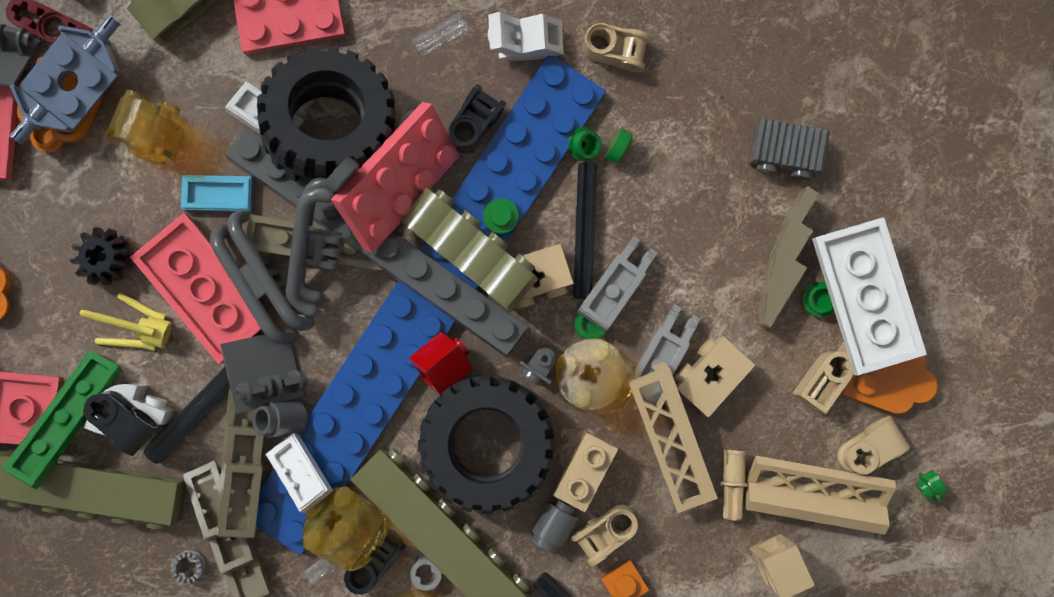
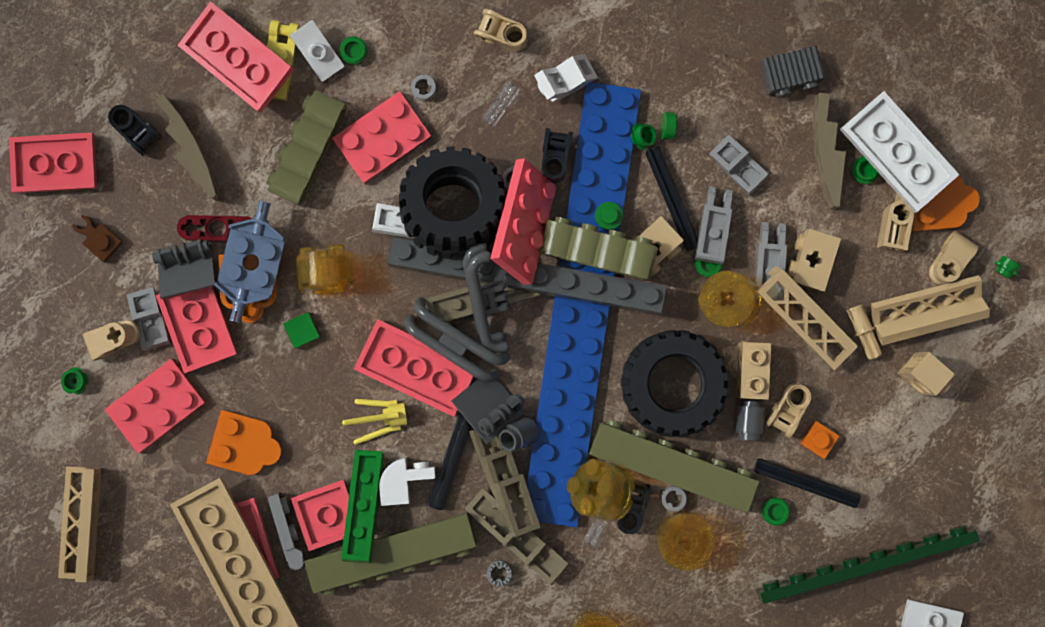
camera: 20 degrees left, 0 degrees up
(95, 186) = (301, 330): none -> green tile
(96, 269) = (338, 385): black gear -> none
(124, 425) = (414, 487): black piece -> none
(217, 193) = (392, 294): medium azure tile -> none
(299, 472) = (551, 466): white plate -> none
(342, 174) = (490, 237): dark grey tile -> none
(441, 362) = (615, 341): red brick -> none
(539, 366) = (687, 310): dark grey hinge -> none
(619, 48) = (639, 53): tan piece -> none
(678, 227) = (739, 165): none -> light grey slope

